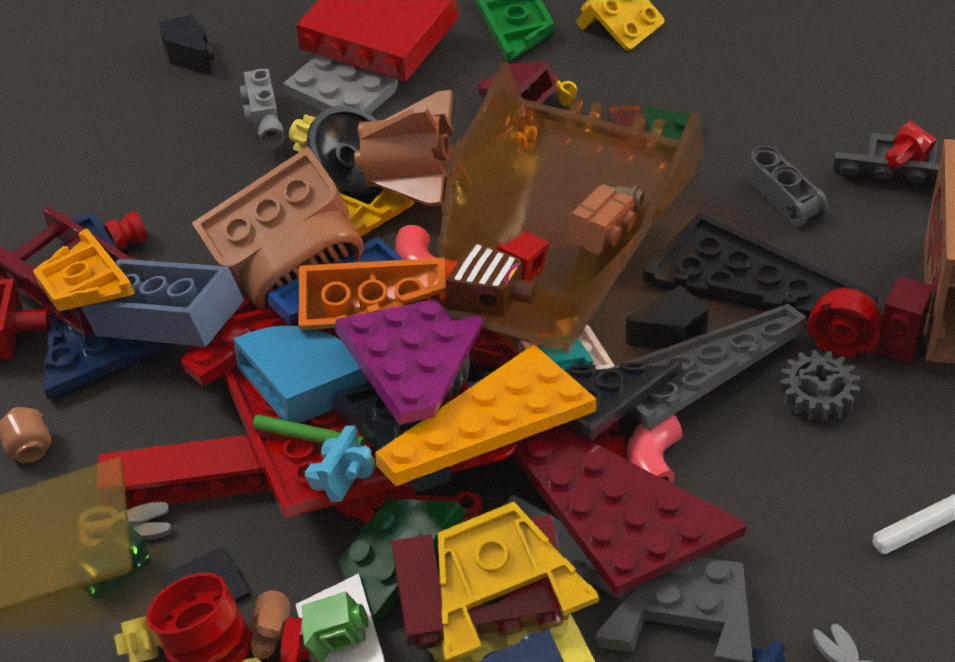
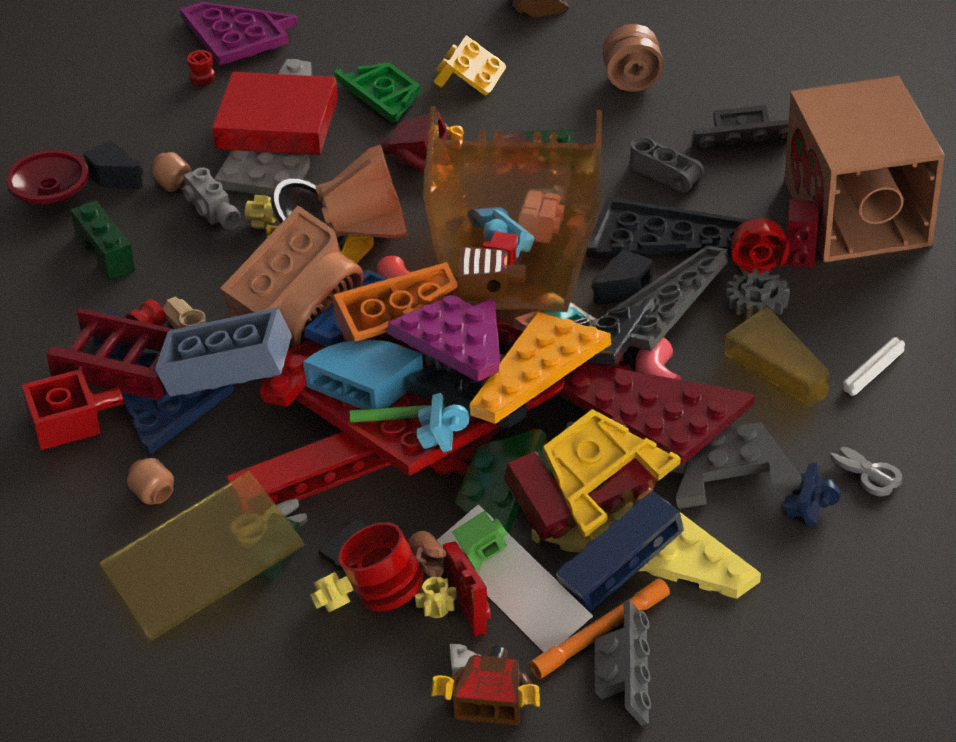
camera: 20 degrees left, 5 degrees down
(82, 275) = (150, 346): light orange wing -> none
(110, 40) = (47, 177): none -> dark red dish
(129, 127) = (99, 232): none -> dark green arch
(164, 240) = (181, 315): none -> tan piece
(237, 59) = (169, 171): none -> nougat head
(542, 206) = (481, 216): none -> dark azure slope
(550, 228) = (502, 223): none -> medium azure hips
(804, 44) = (632, 57): none -> nougat wheel
(806, 478) = (778, 358): none -> clear yellow slope
(910, 144) = (749, 111): red axle -> none

